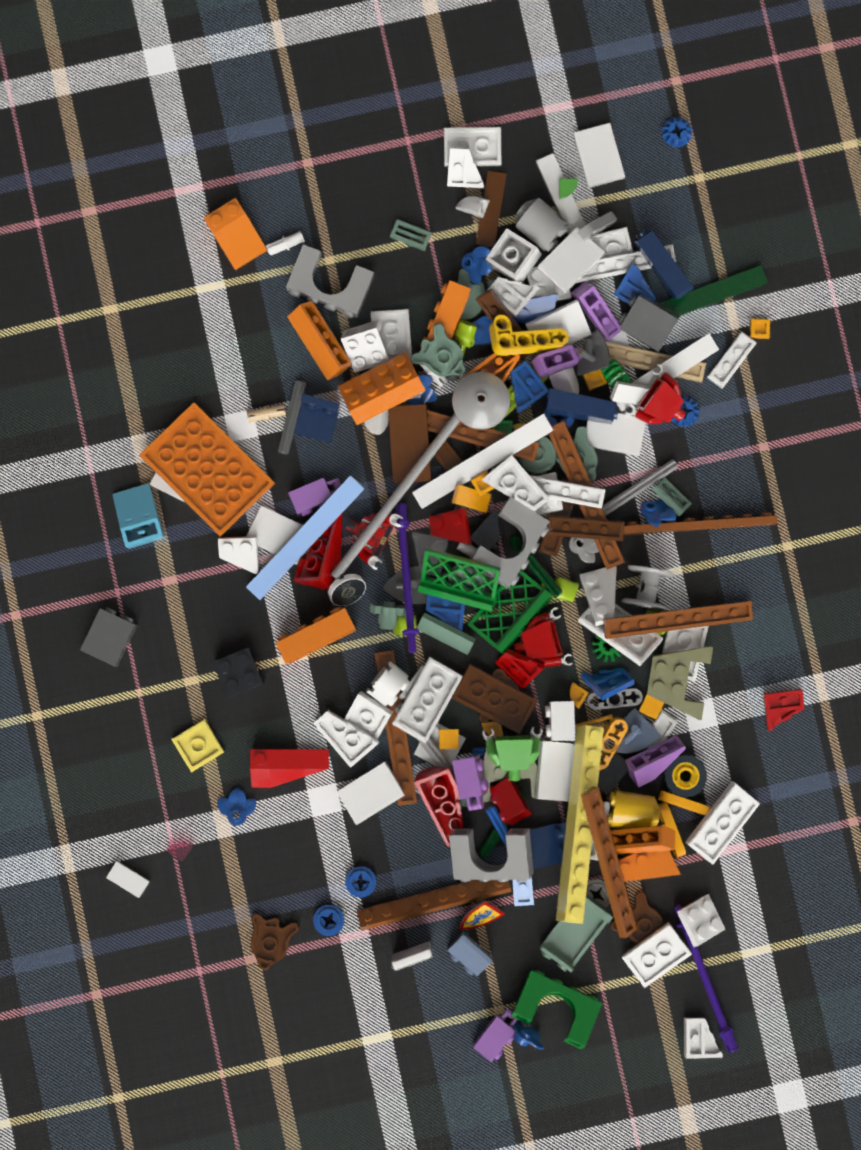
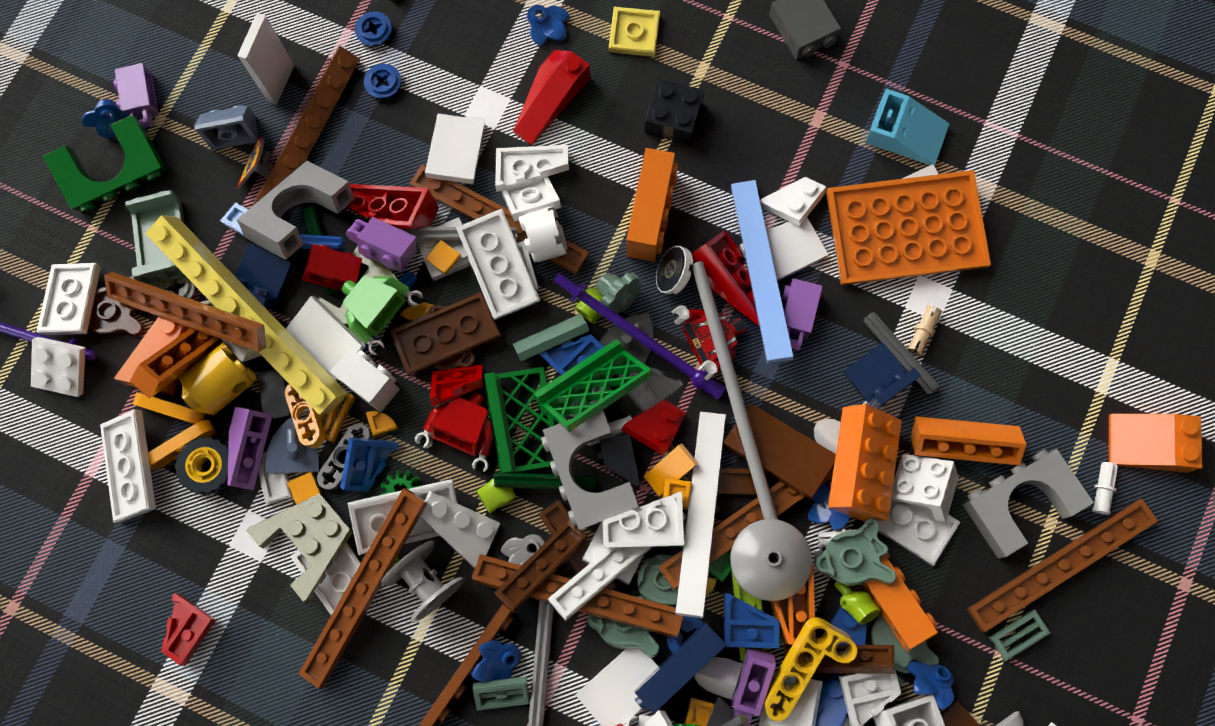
camera: 135 degrees right, 10 degrees down
(351, 237) = (1061, 565): none -> dark orange plate

